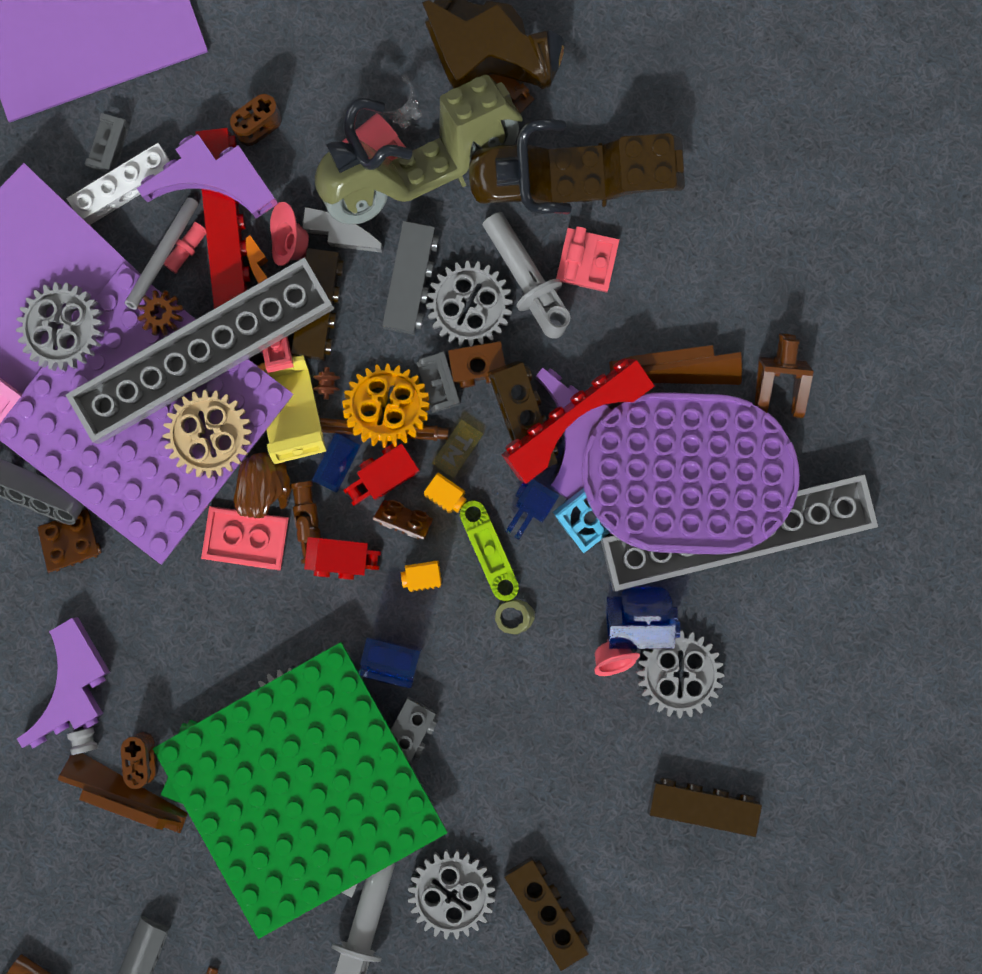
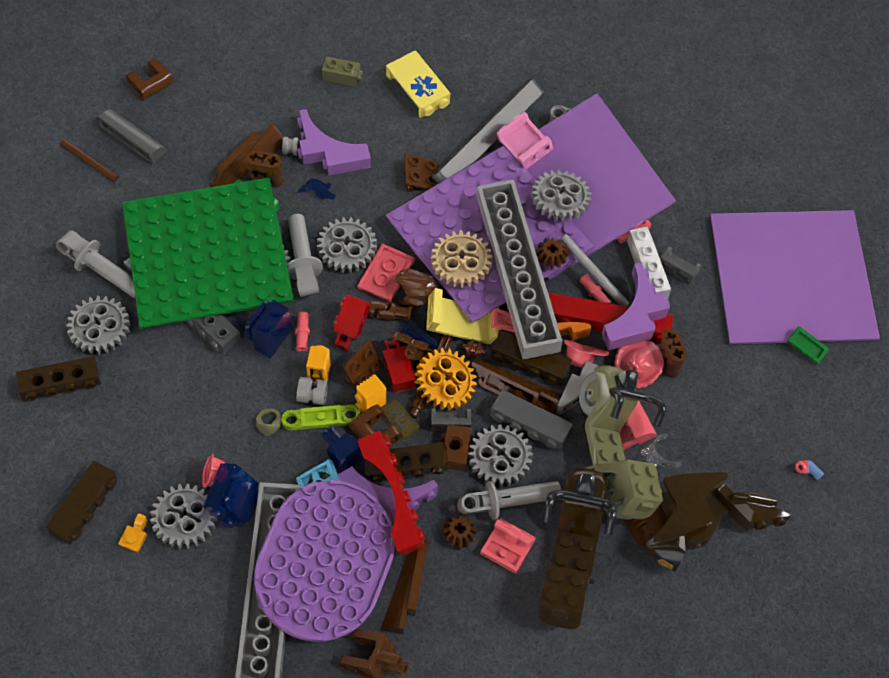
camera: 105 degrees right, 25 degrees down
(136, 676) = (320, 189): none -> clear blue piece
(196, 609) = (328, 243): none -> light grey gear
(280, 647) = (304, 266): none -> light grey piece
(282, 159) = (643, 358): none -> coral piece
(355, 457) = (415, 349): none -> reddish brown hinge
(363, 310) = (496, 379): none -> reddish brown wedge
(372, 619) = (302, 331): none -> coral pin
(458, 583) = (312, 391): none -> light grey wheel
(495, 481) = (362, 424): none -> reddish brown connector
(598, 328) = (467, 529): none -> reddish brown gear
(724, 726) = (134, 536): none -> light orange plate

